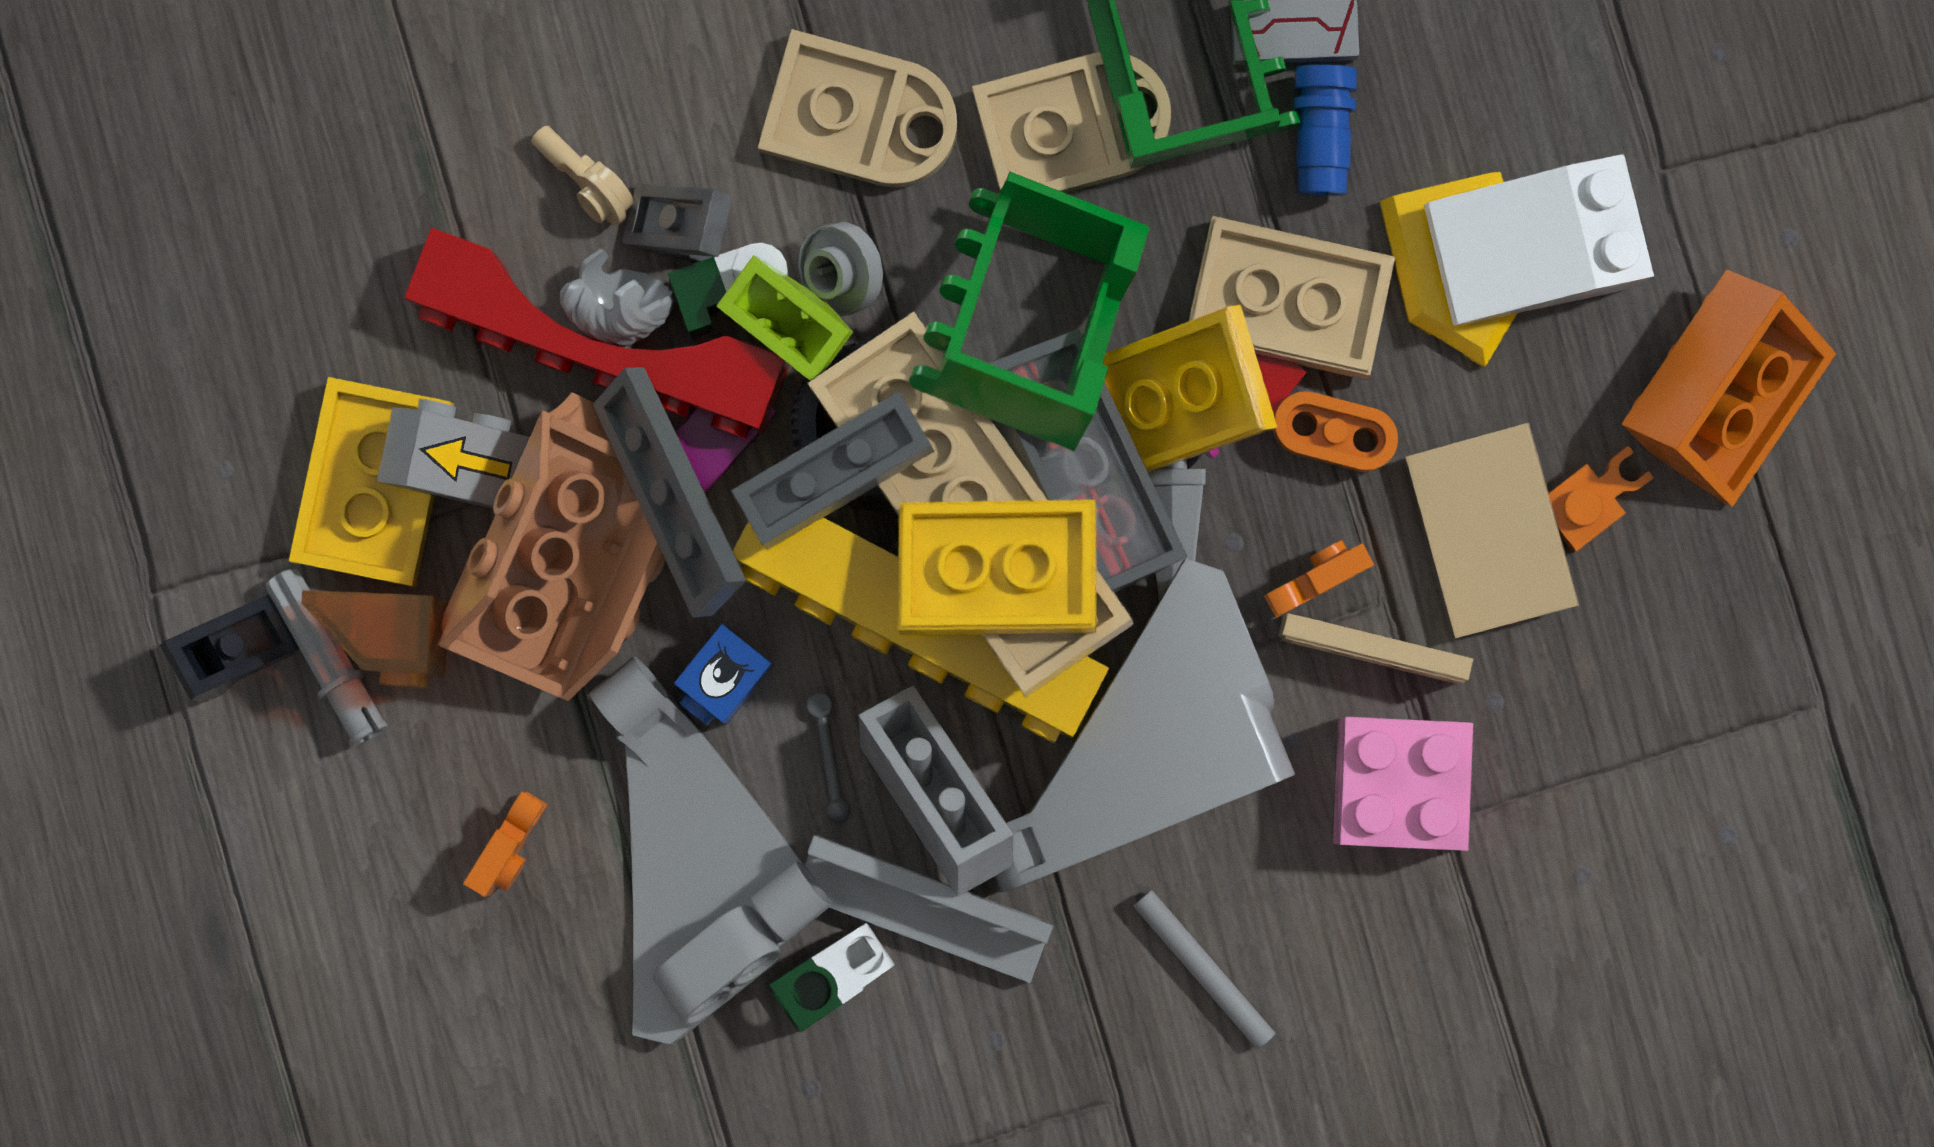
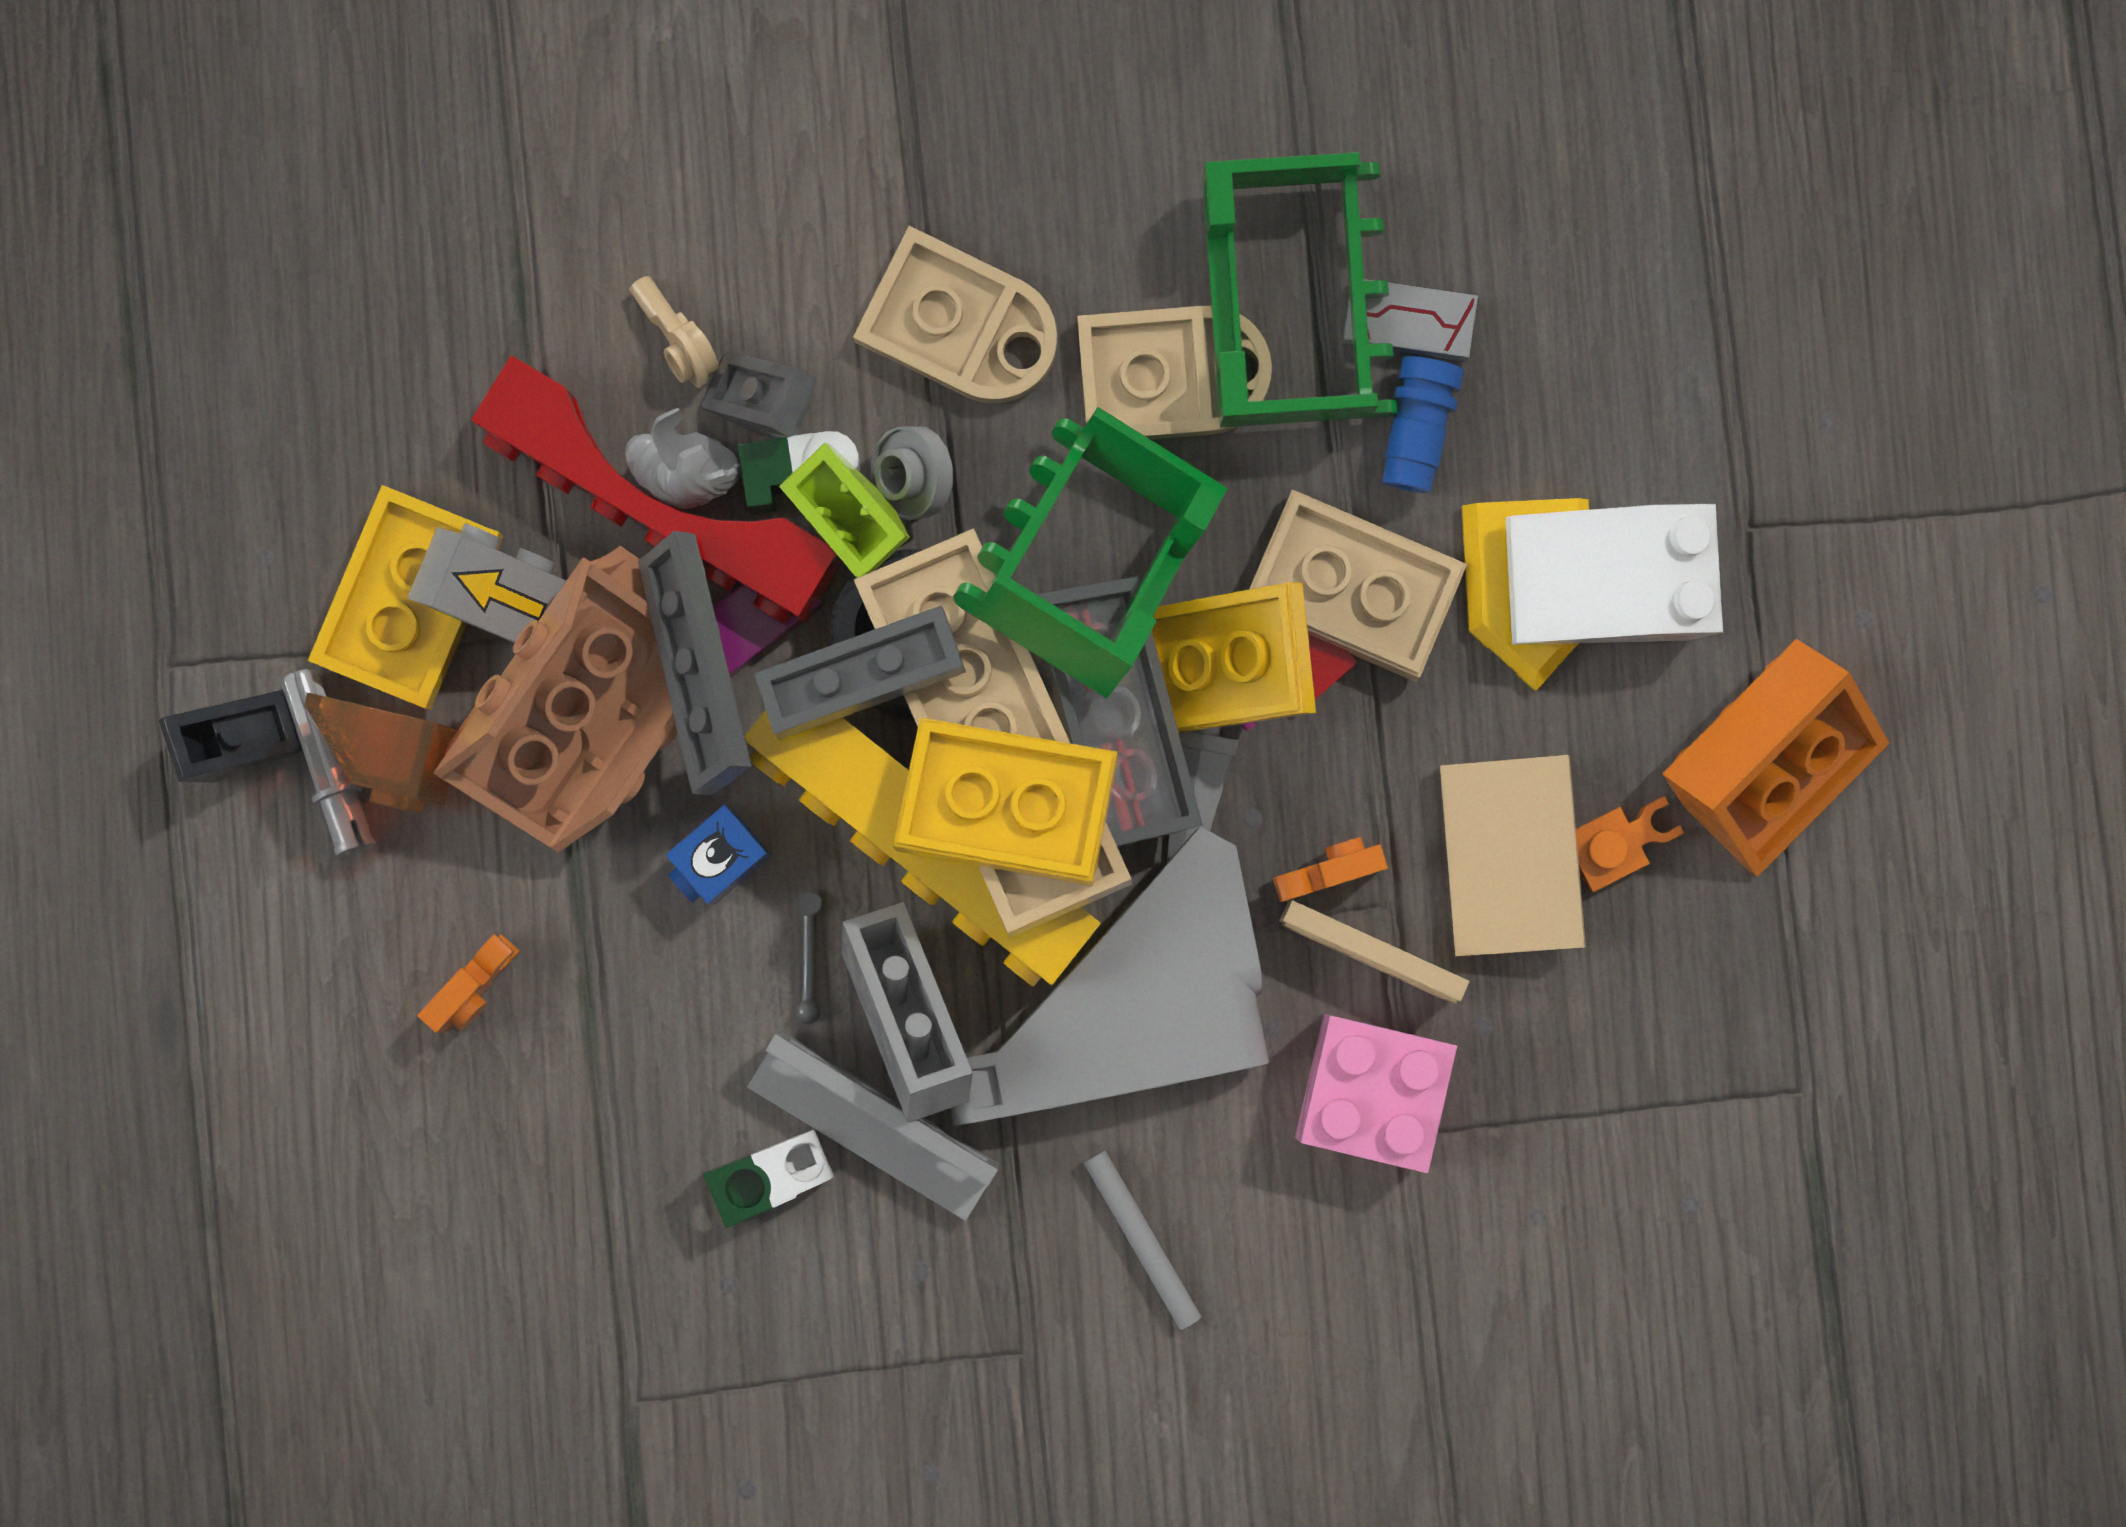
camera: 10 degrees right, 0 degrees up
(708, 865) = (666, 1042): light grey panel -> none
(1334, 431) = (1374, 724): orange plate -> none

